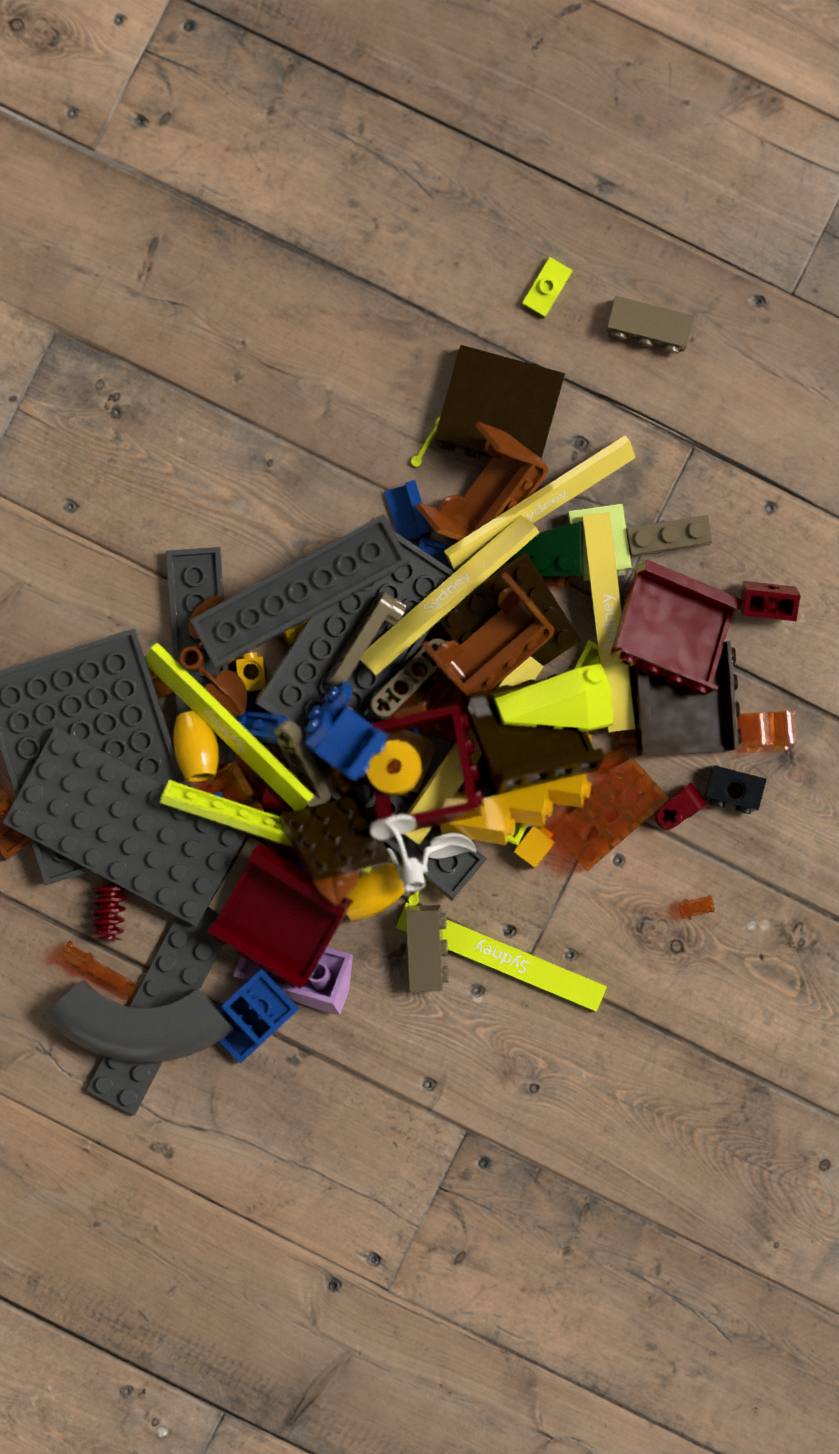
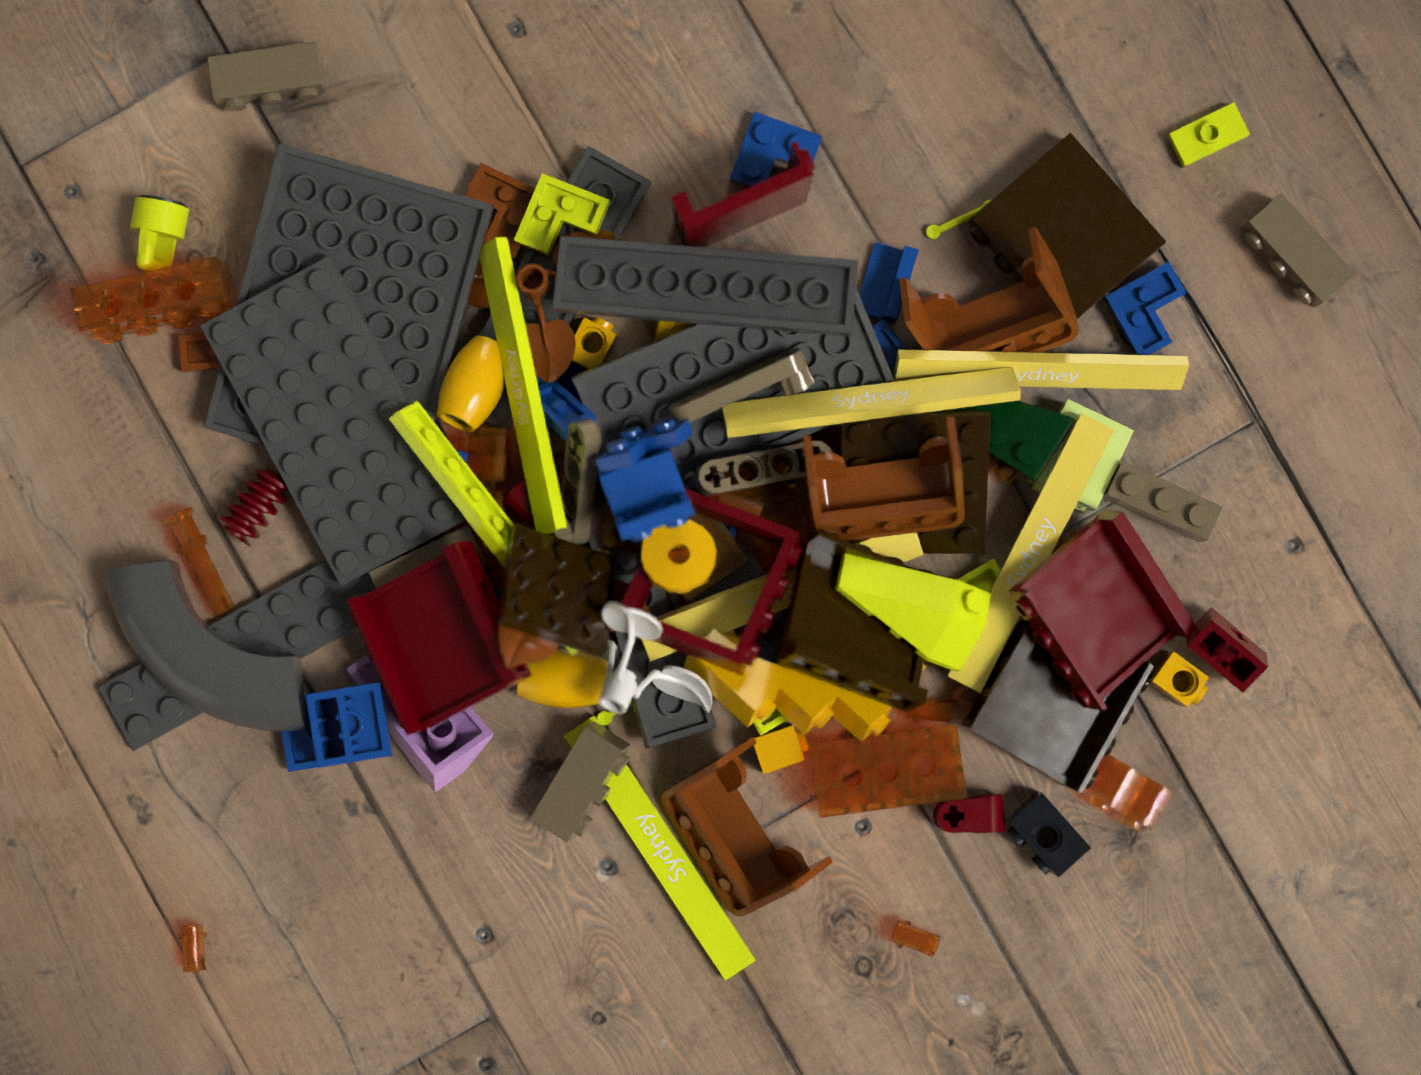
camera: 35 degrees right, 0 degrees up
(142, 615) = (509, 201): none -> dark orange plate
(171, 600) = (555, 204): none -> neon yellow plate
(254, 1212) = (193, 947): none -> clear orange pin
(277, 471) = (766, 142): none -> blue plate
(292, 527) = (746, 207): none -> dark red panel
(539, 922) = (730, 840): none -> dark orange windscreen
(573, 423) = (1136, 307): none -> blue plate
(741, 643) = (1164, 673): none -> yellow brick

